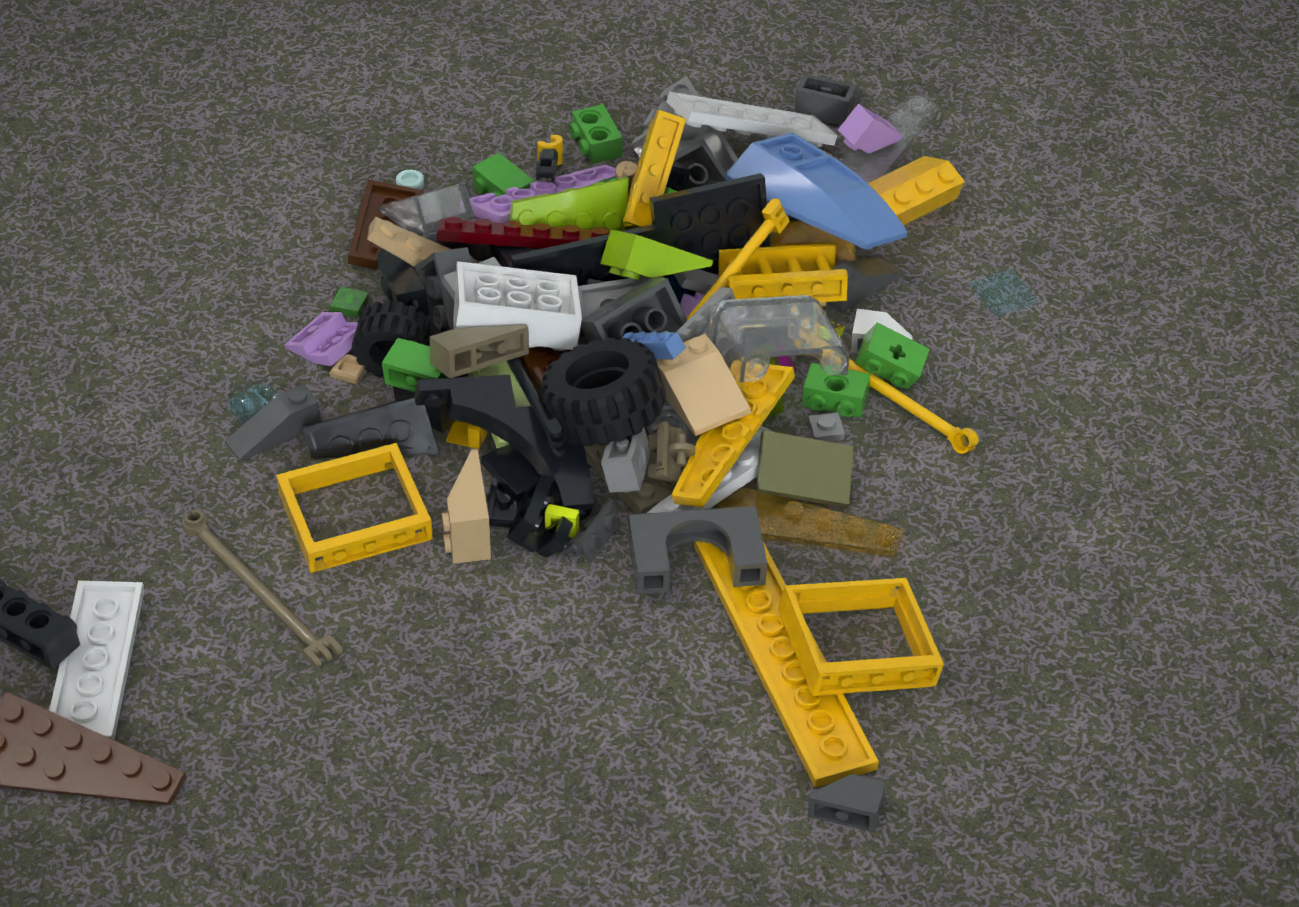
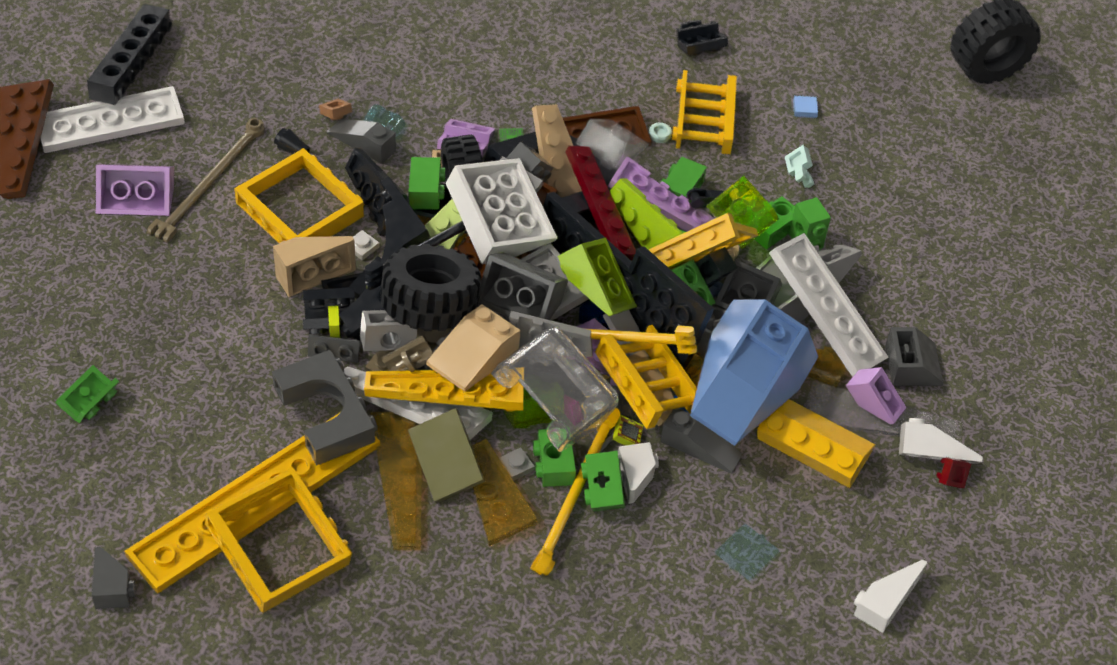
camera: 65 degrees right, 5 degrees up
(211, 437) = (335, 109): none -> medium nougat plate
(241, 657) = (134, 189): none -> lavender slope
(245, 493) = (289, 141): none -> black cone
(284, 105) = (698, 37): none -> black slope
(404, 114) = (726, 106): none -> yellow fence
(436, 61) = (805, 106): none -> light blue tile
(444, 471) = (364, 245): none -> white plate
(476, 348) = (435, 197): dark tan slope -> none
(522, 89) = (797, 165): none -> light aqua plate
(566, 769) = (86, 394): none -> bright green bracket
(594, 138) = (746, 207): none -> clear neon green brick
(626, 103) = (811, 219): none -> bright green brick
(663, 345) = (483, 297): medium blue piece -> none
(879, 450) = (499, 499): none -> clear yellow wing
(937, 119) = (930, 442): none -> white slope
(975, 113) = (954, 472): none -> dark red tile
(1100, 211) = (887, 595): none -> white slope

